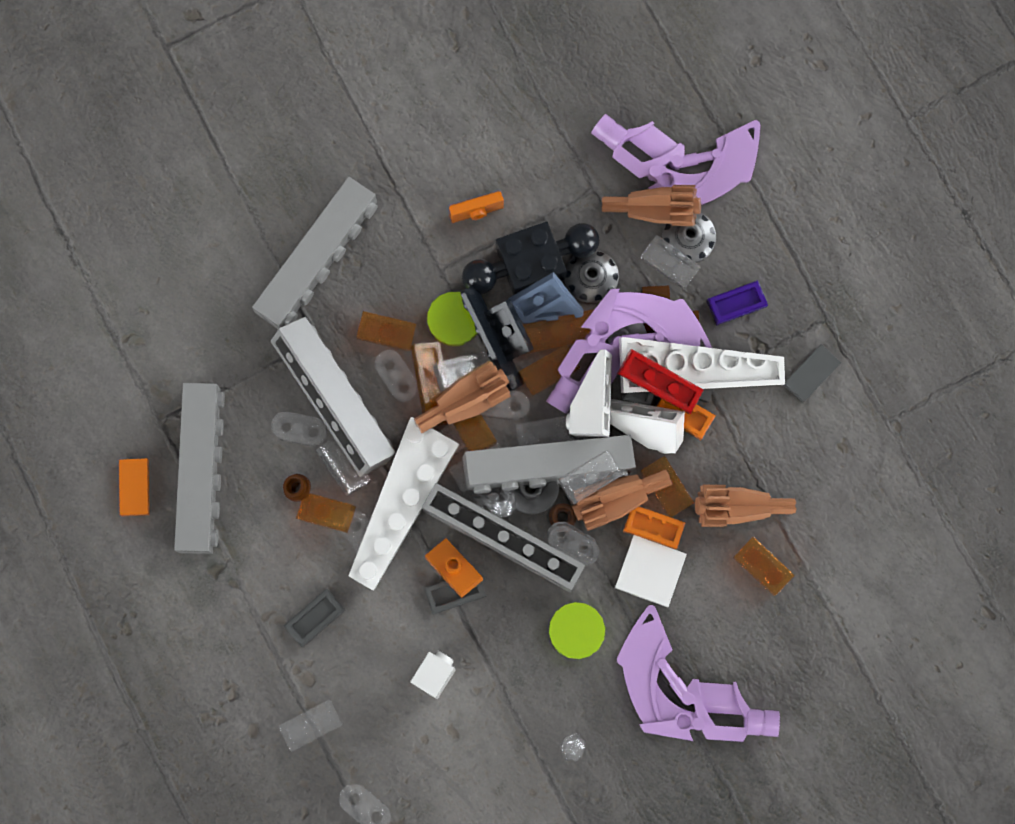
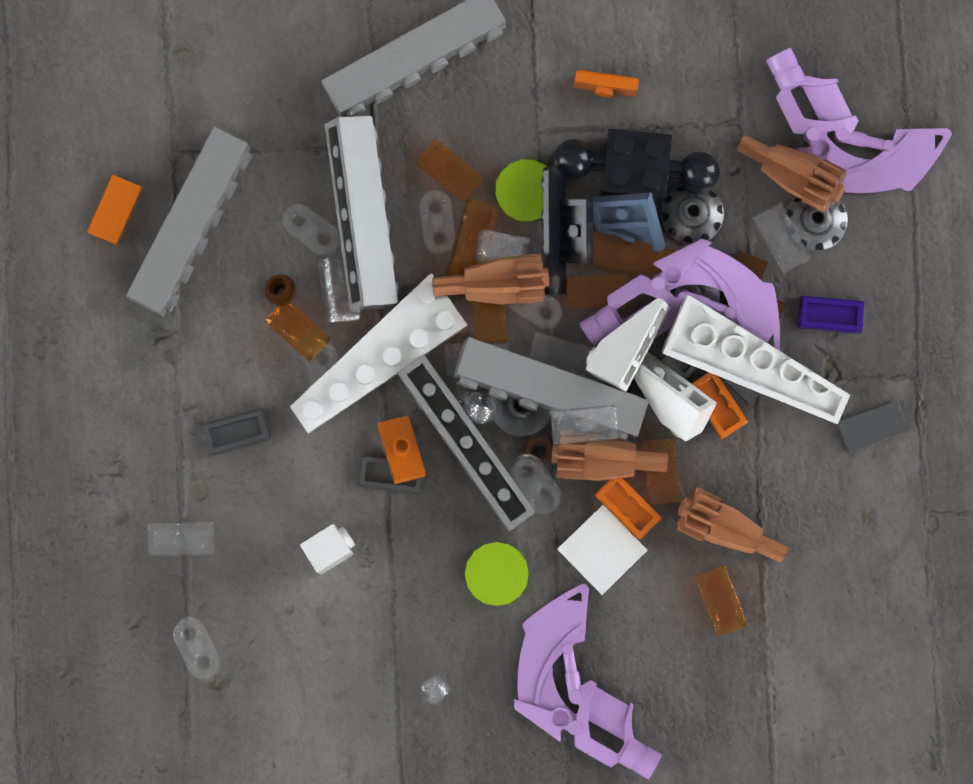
camera: 20 degrees right, 5 degrees up
(660, 381) = (706, 360): red tile -> none

